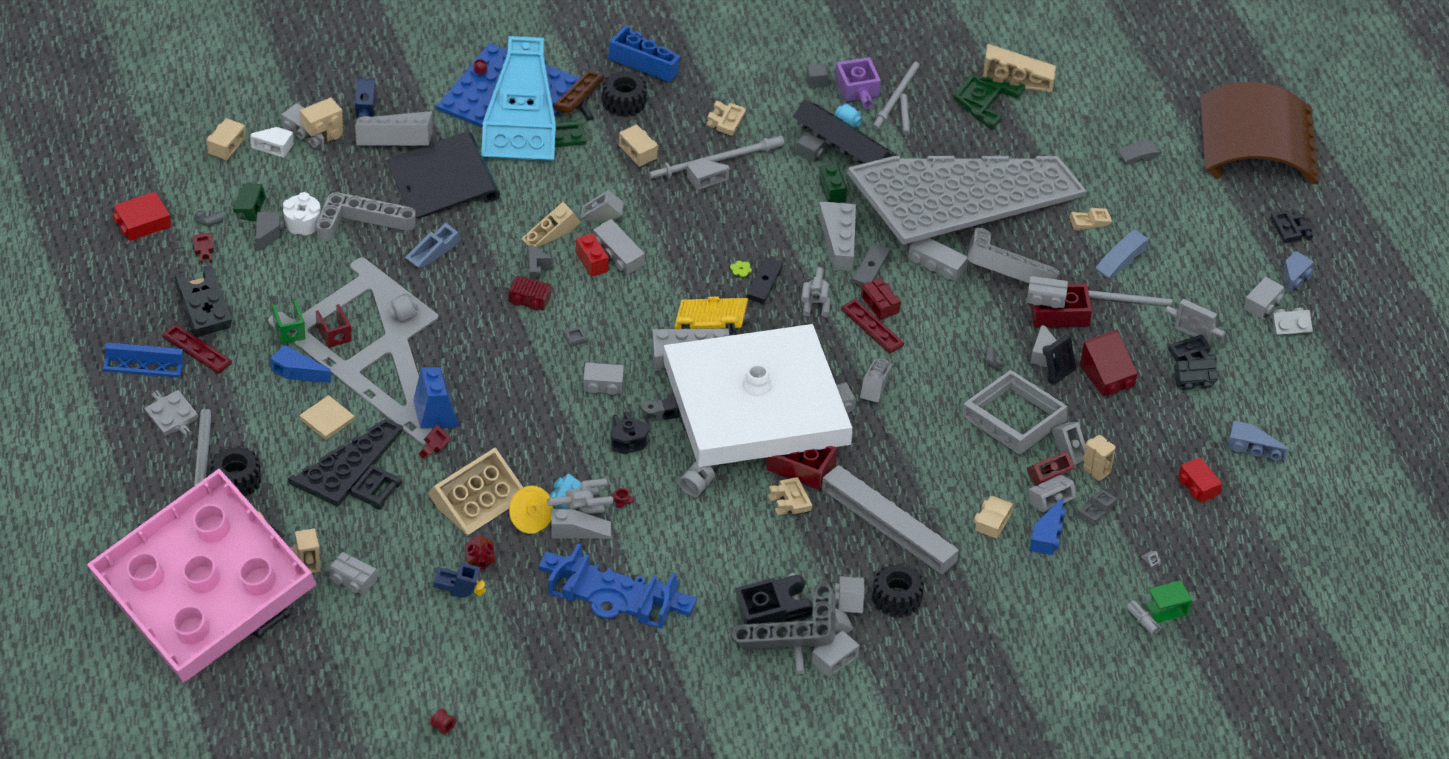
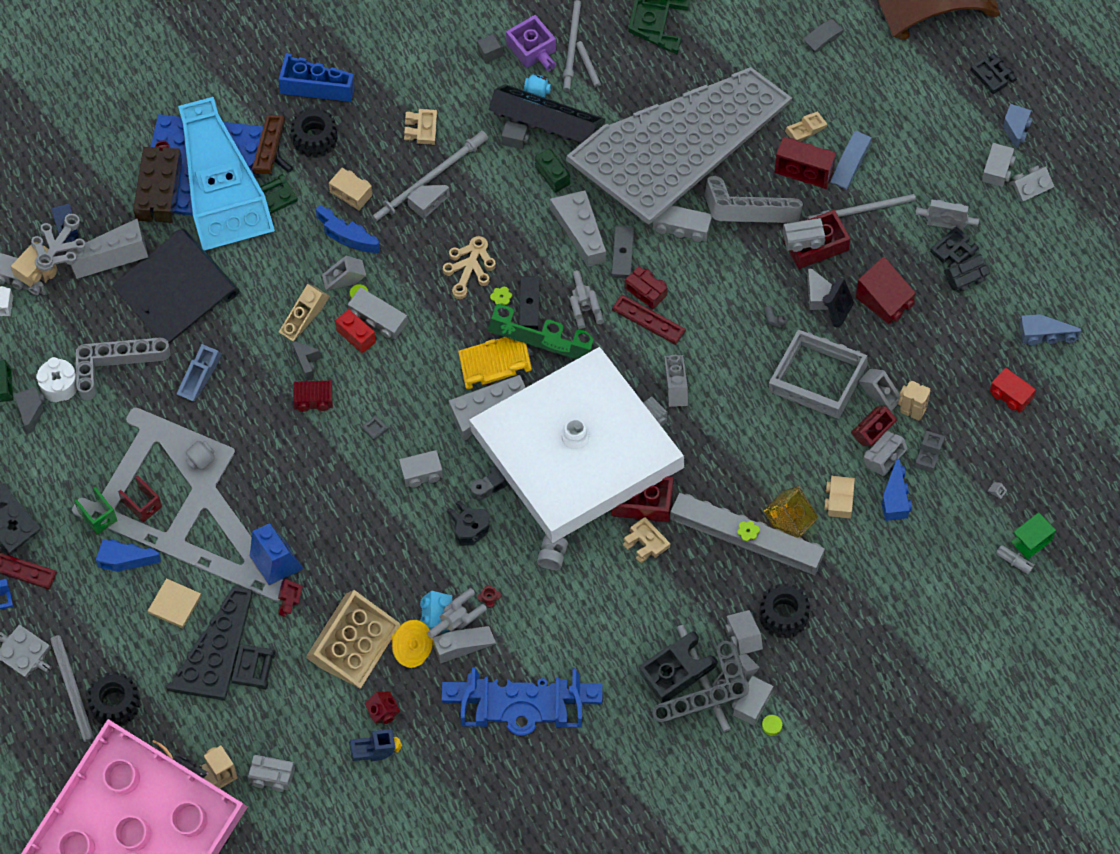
camera: 15 degrees left, 15 degrees up
(333, 113) = (57, 245): none -> light grey plant
(462, 90) = (157, 184): none -> dark brown piece
(620, 180) = (348, 235): none -> blue slope
(736, 223) = (469, 264): none -> tan plant
(764, 310) = (544, 339): none -> piece
(845, 681) = (772, 725): none -> lime tile
(890, 512) = (748, 526): none -> lime plant
(939, 511) = (791, 512): none -> clear yellow slope
(1075, 241) = (805, 162): none -> dark red brick

